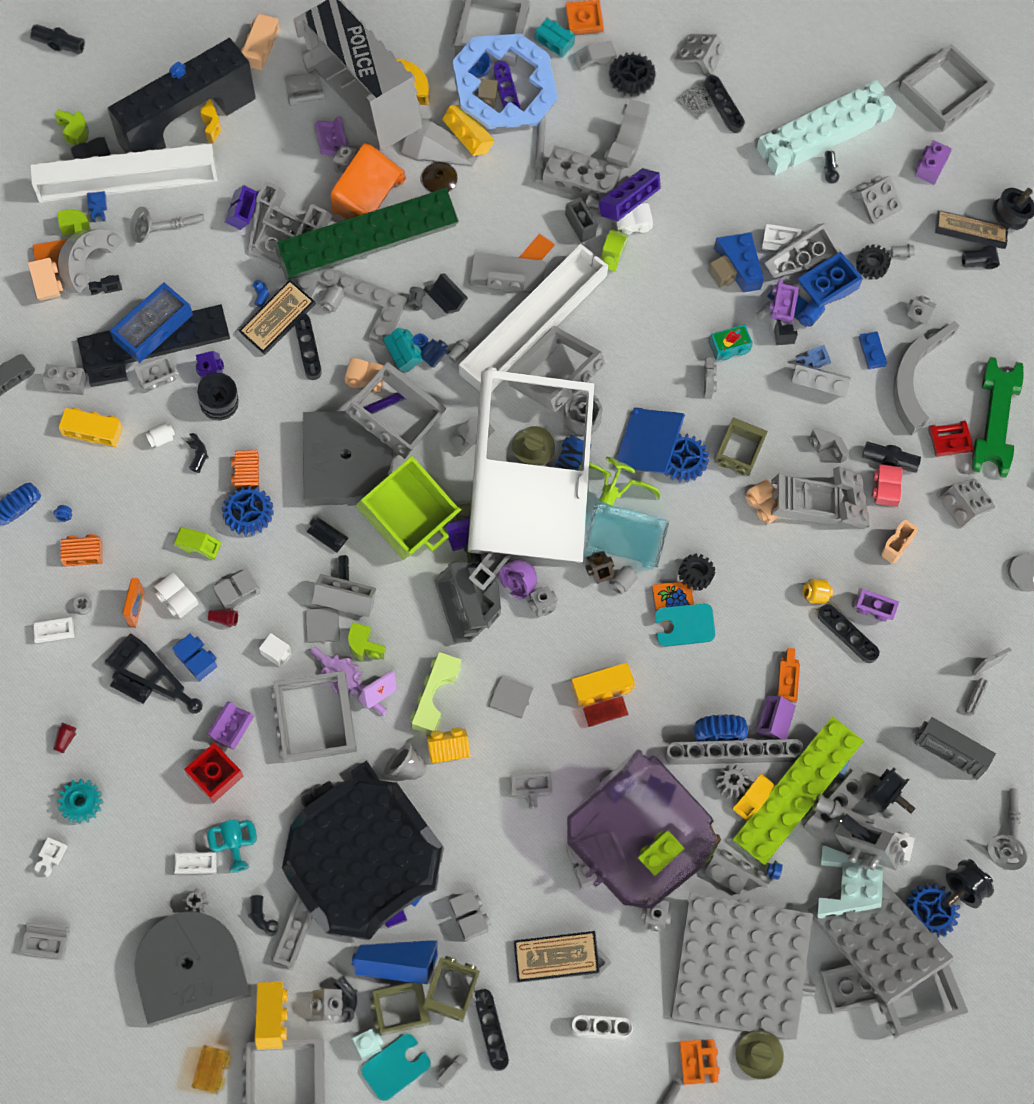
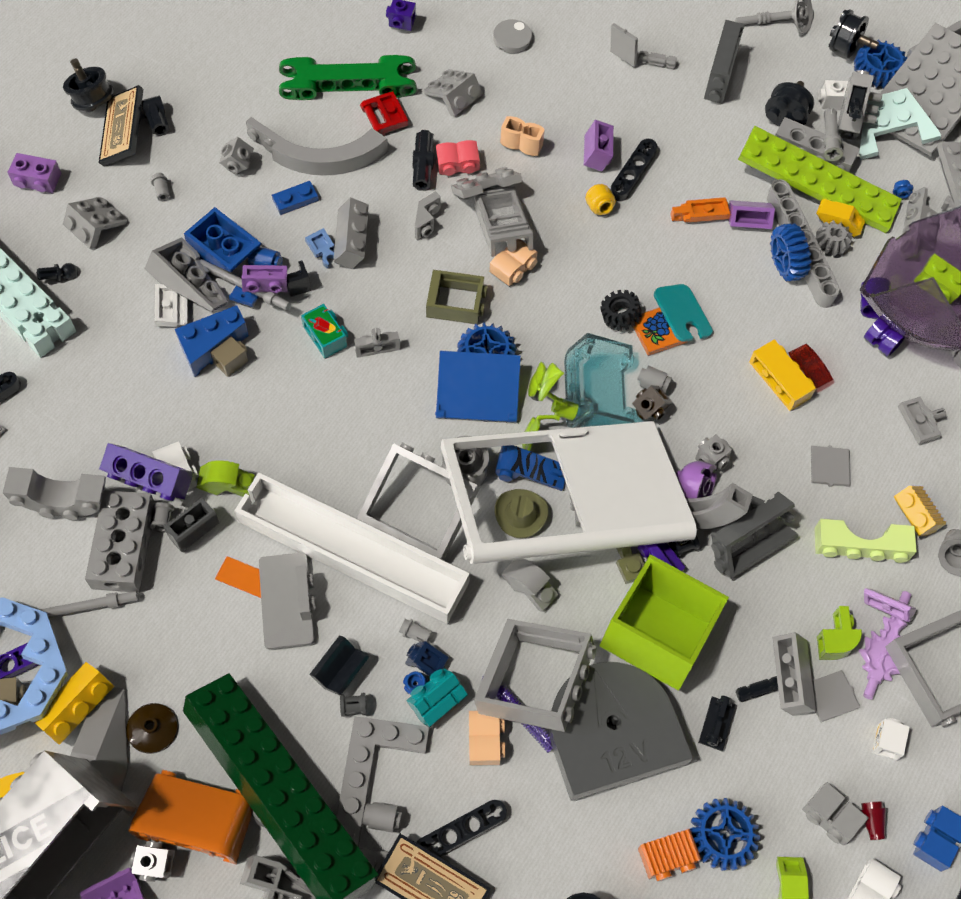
camera: 105 degrees left, 5 degrees down
(877, 253) = (177, 202): black tyre -> none

